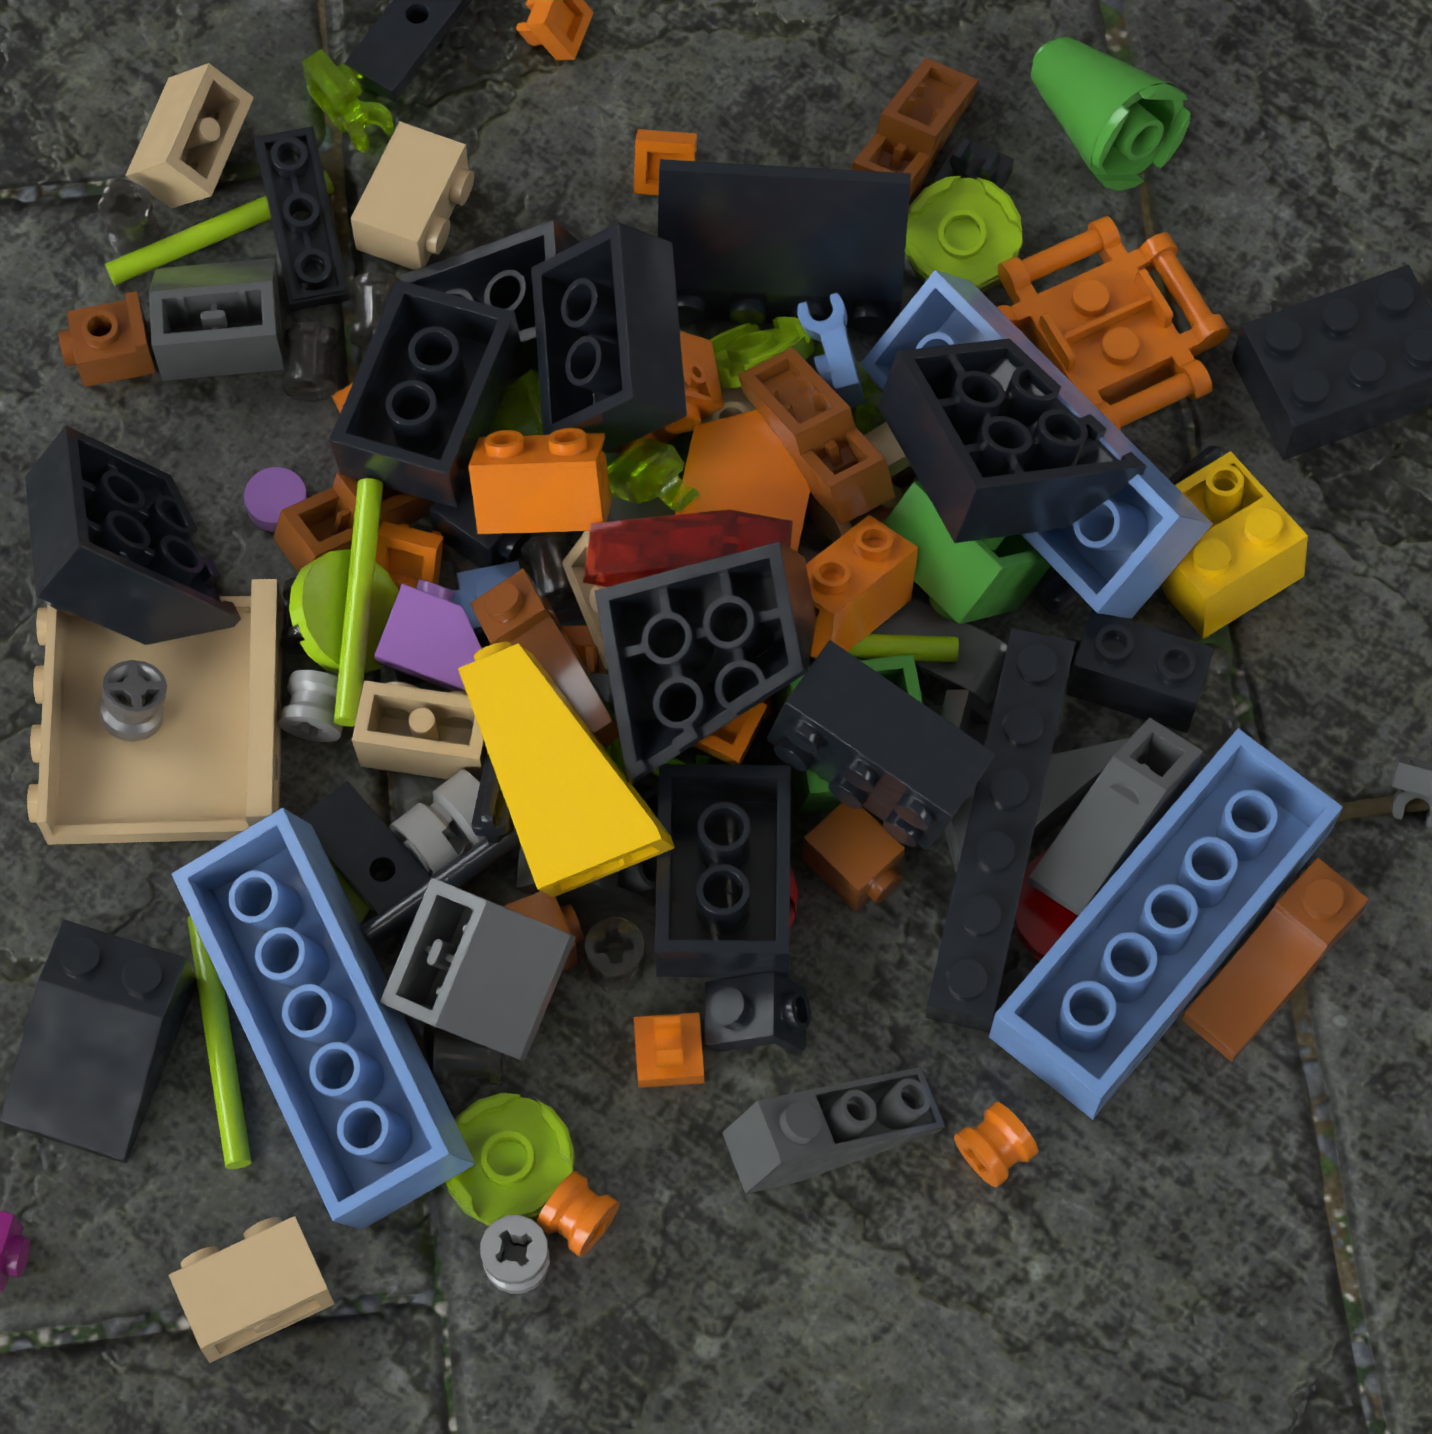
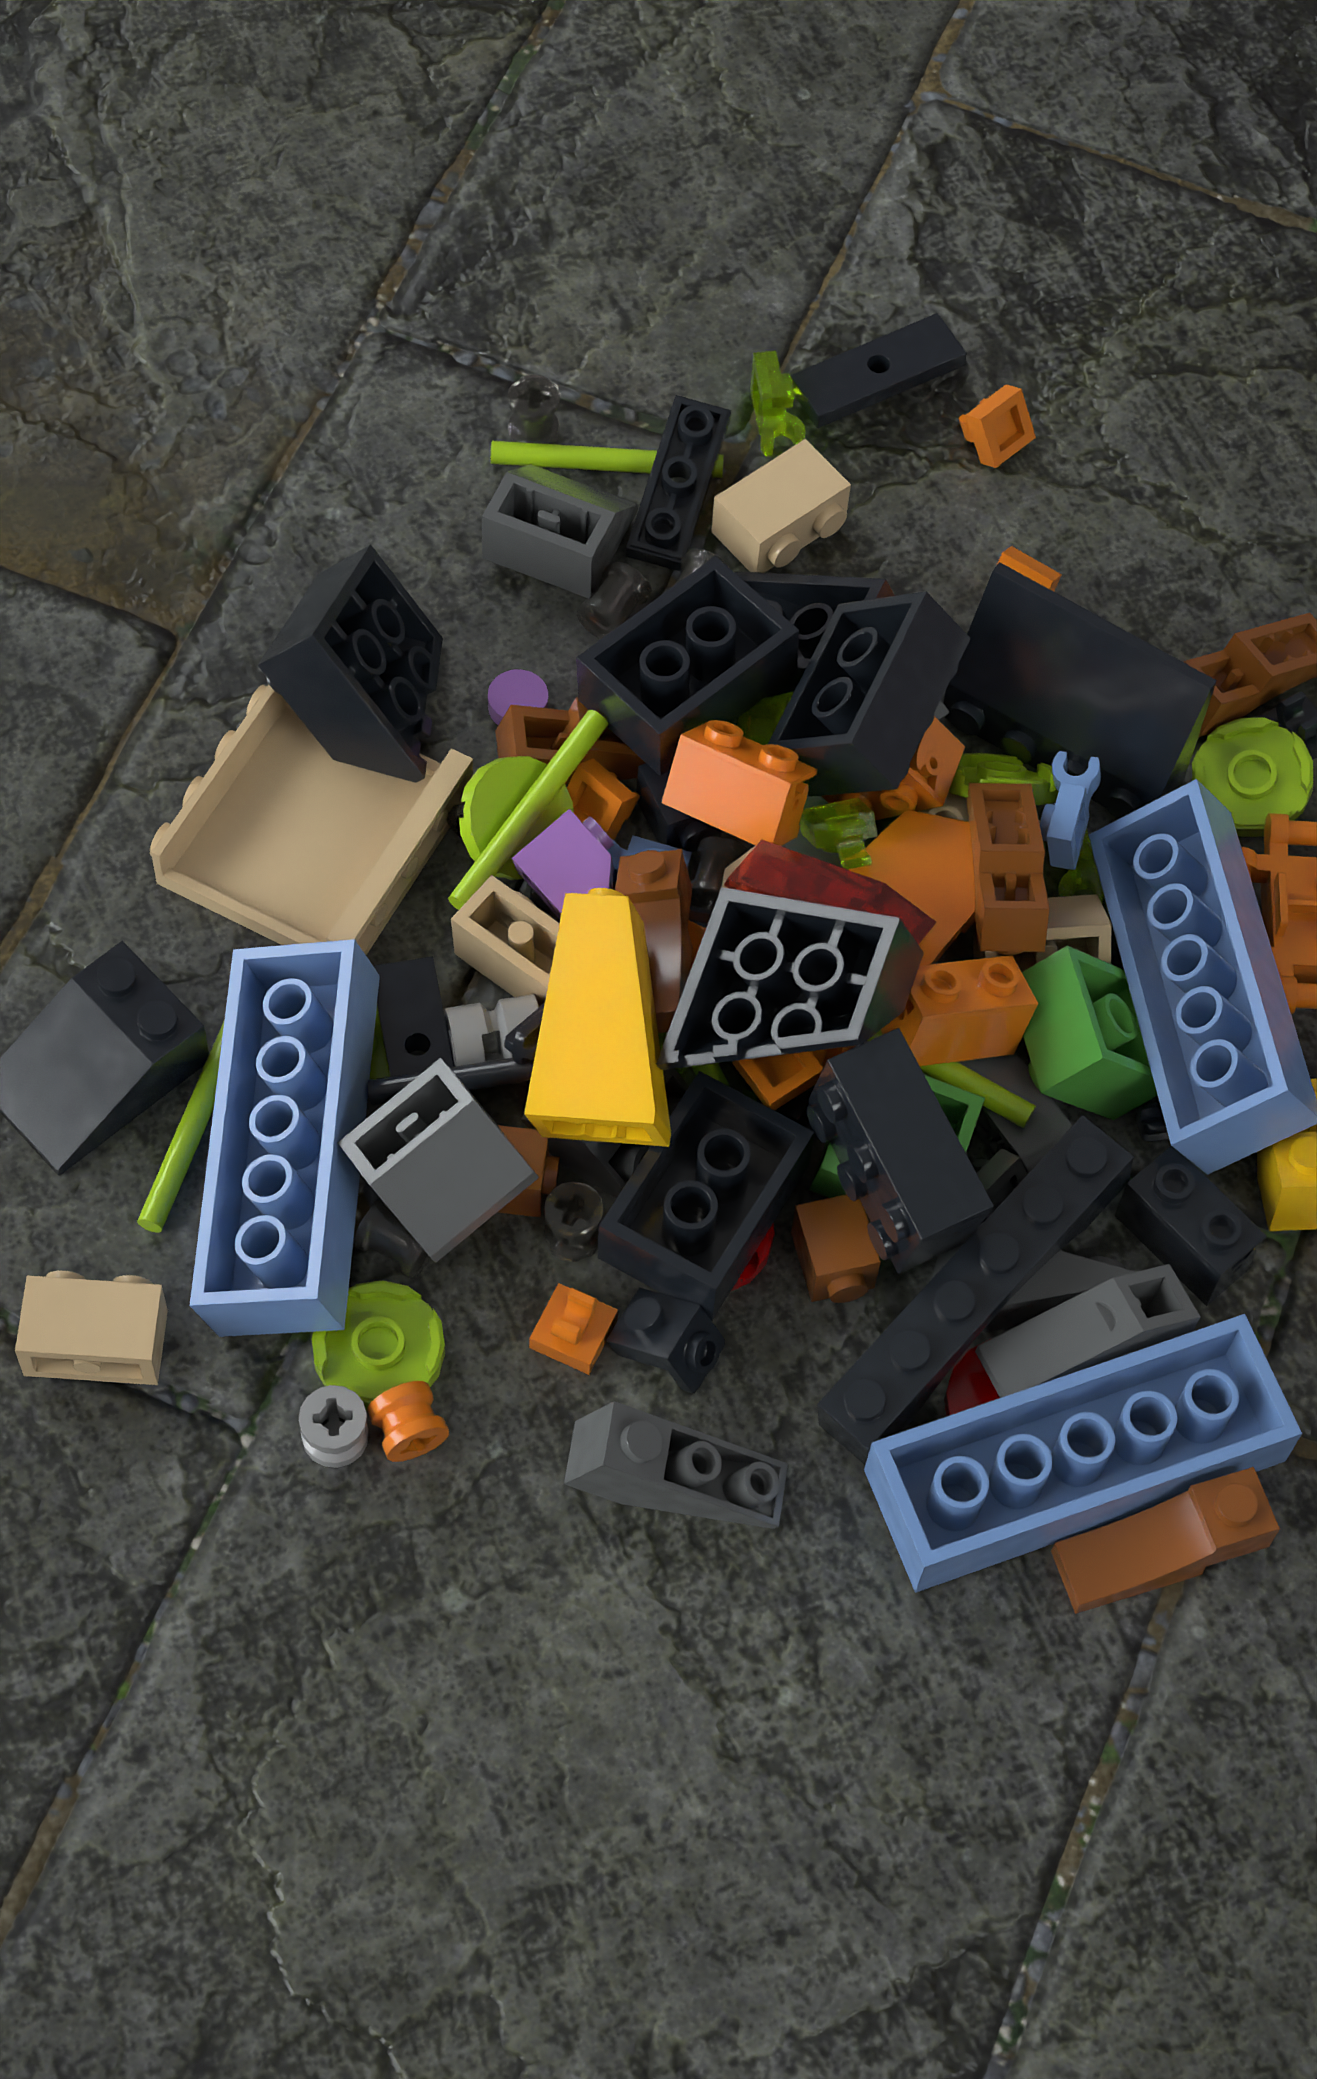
camera: 25 degrees right, 5 degrees down
(108, 341) = (452, 502): dark orange brick -> none
(147, 692) = (292, 782): flat silver wheel -> none
(190, 136) = (623, 370): tan brick -> none
(311, 707) = (437, 881): light grey wheel -> none
(996, 1144) = (812, 1563): orange wheel -> none
(997, 441) = (1162, 947): black wedge -> none

